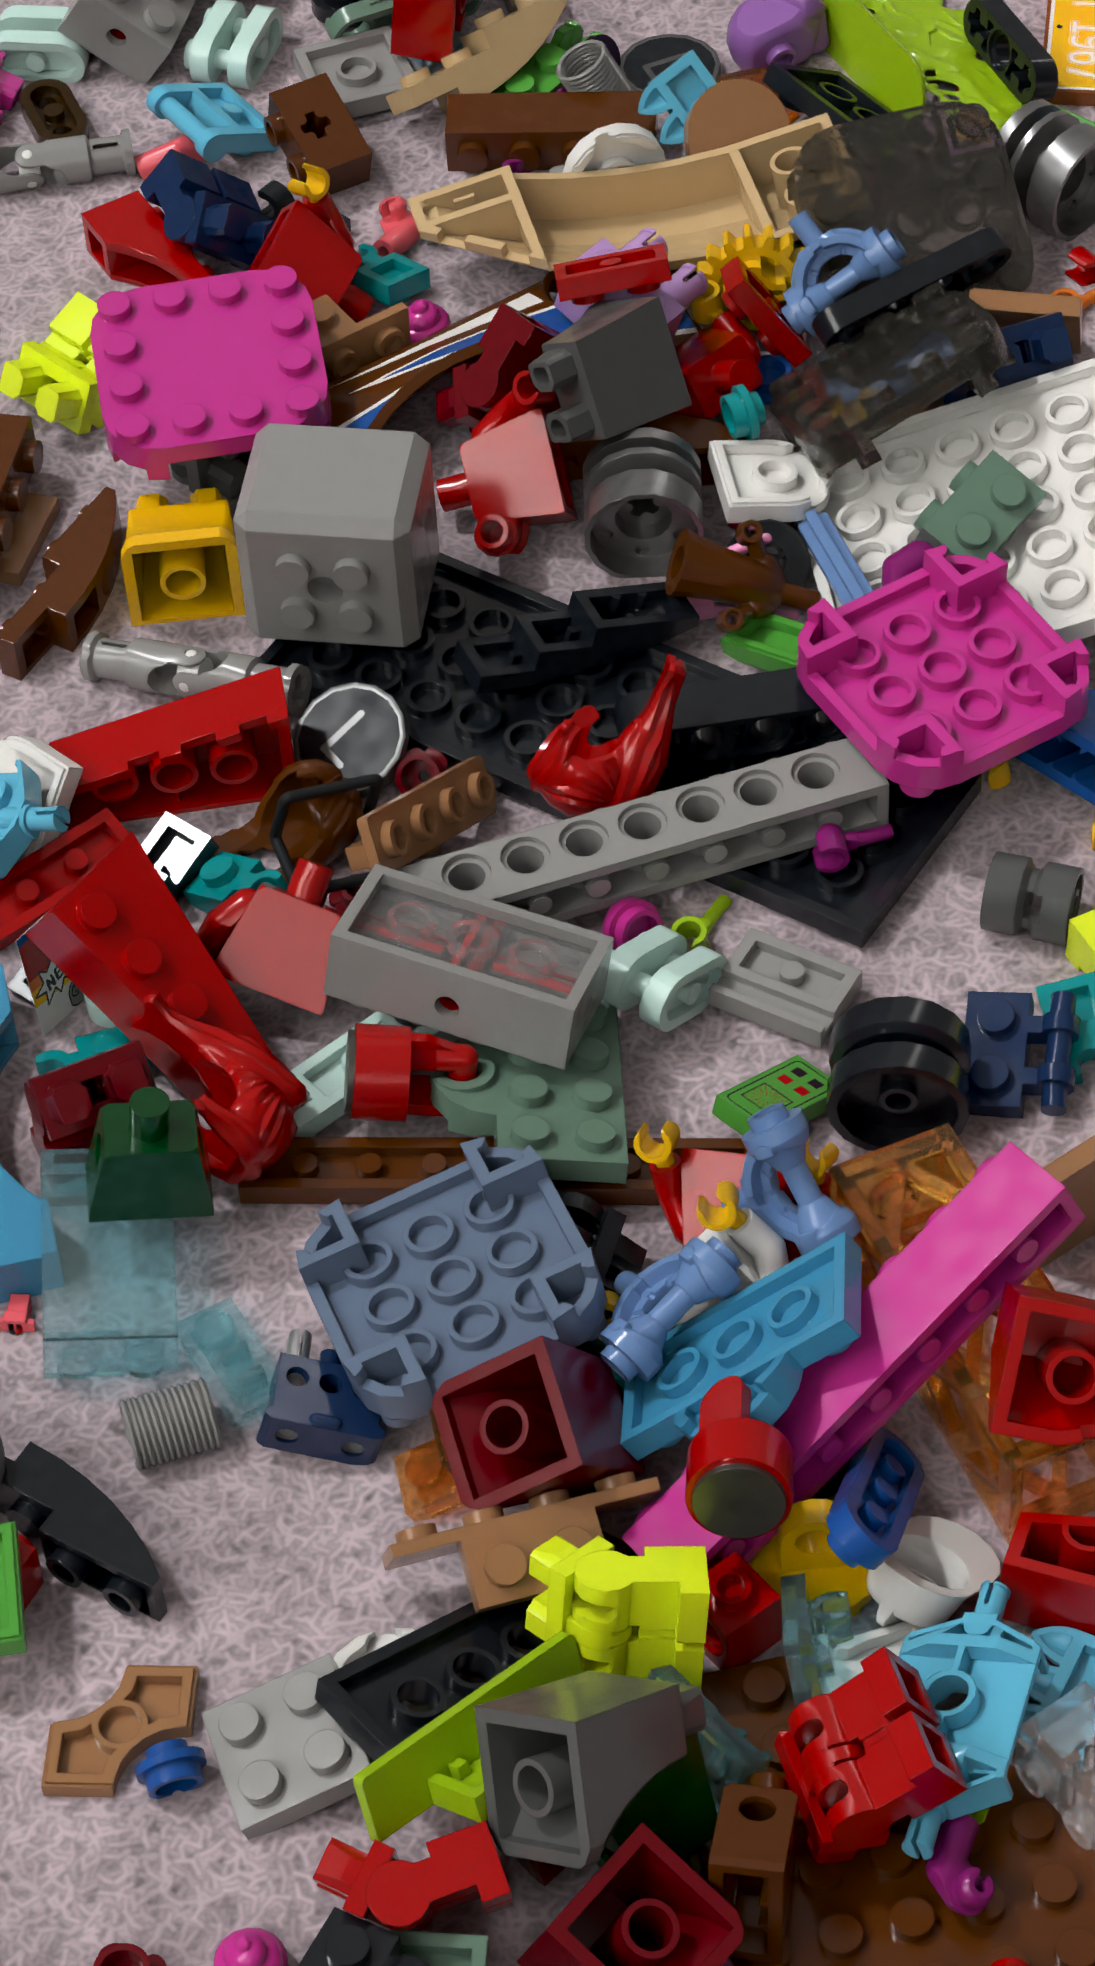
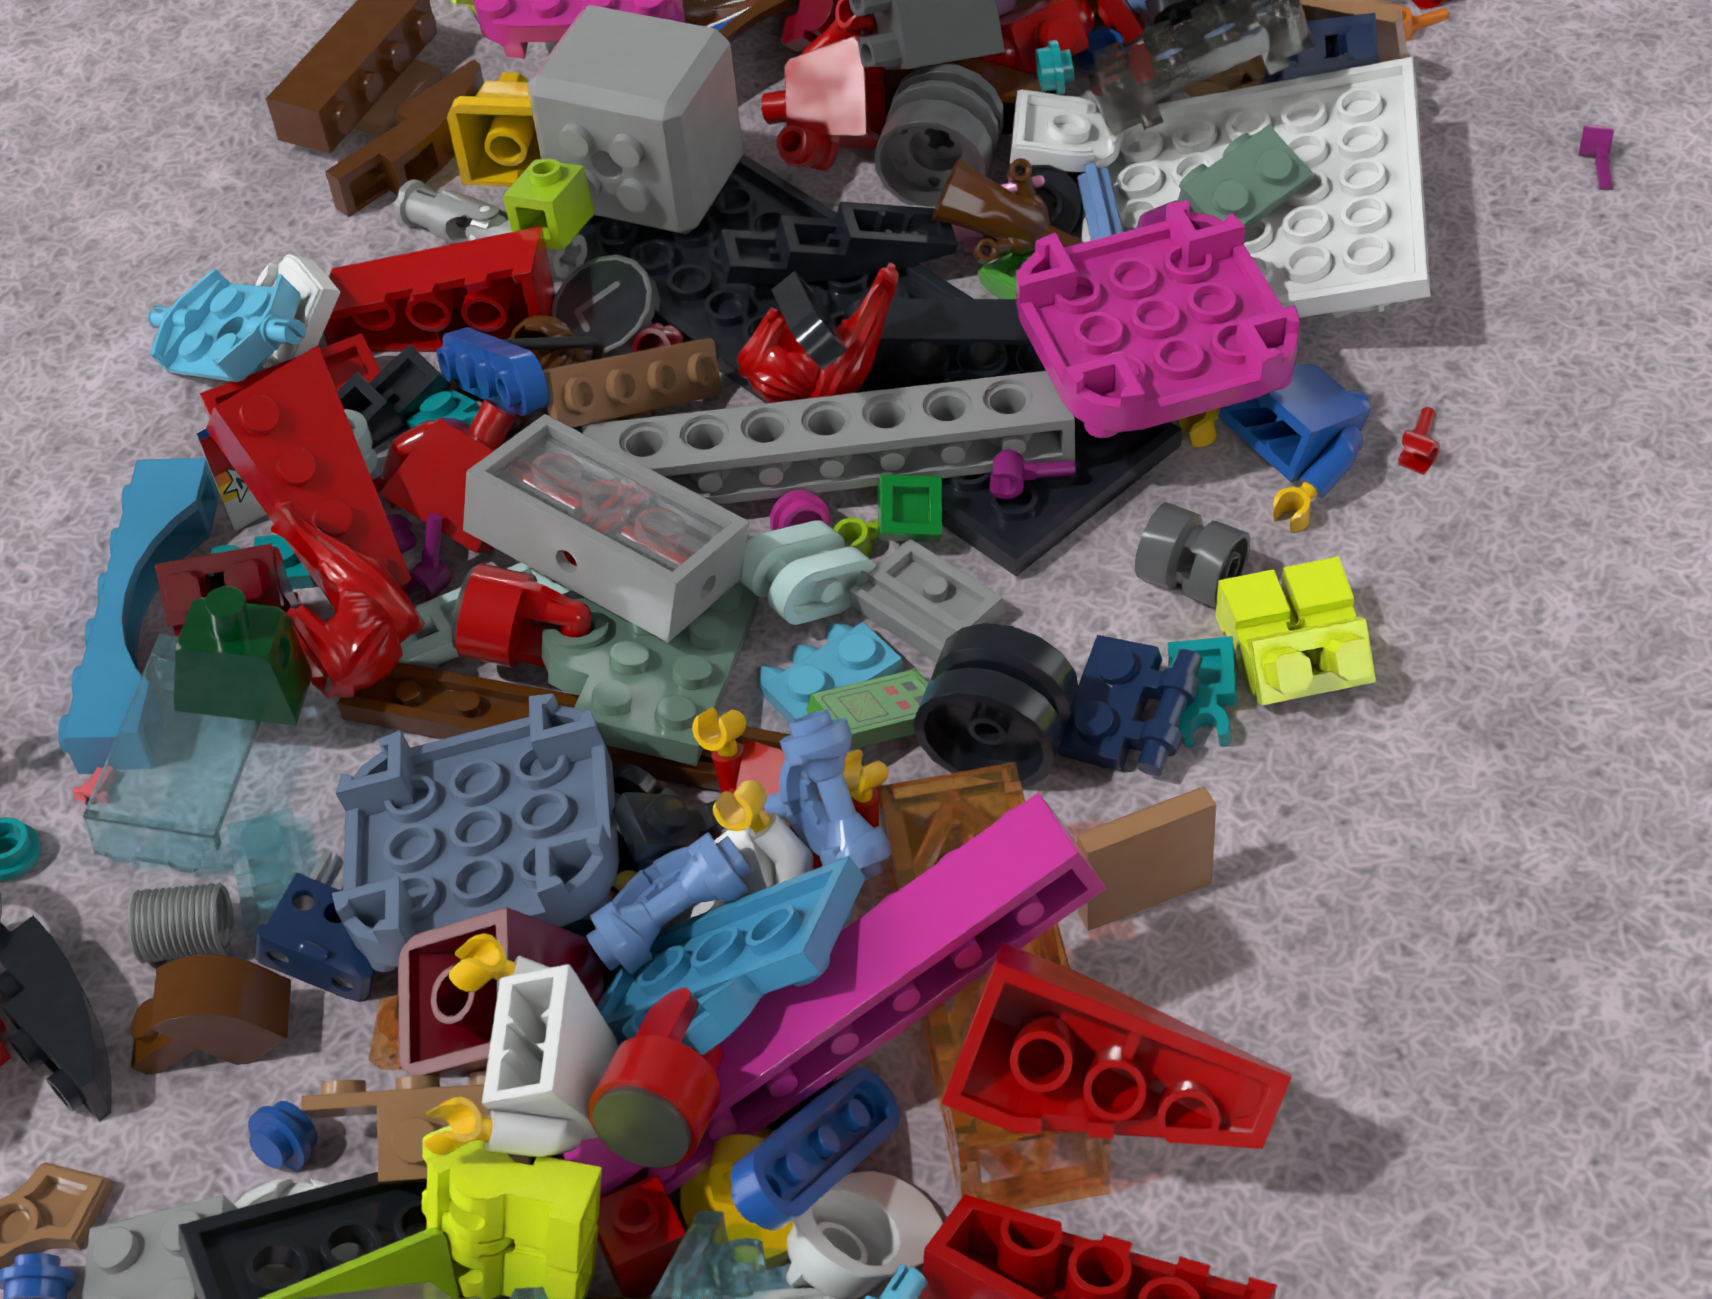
camera: 15 degrees right, 0 degrees up
(238, 1490) = (210, 1006): none -> reddish brown brick
(274, 1035) = (430, 570): none -> magenta hand
(276, 633) = (550, 197): none -> lime brick
(286, 825) = (494, 370): none -> blue plate
(352, 1595) = (282, 1135): none -> blue plate
(606, 725) = (809, 320): none -> black beam
(625, 1459) = (541, 1059): none -> white torso
(634, 1242) = (661, 824): none -> black plate
(725, 1059) = (847, 659): none -> medium azure plate
(744, 897) = (909, 508): none -> green tile

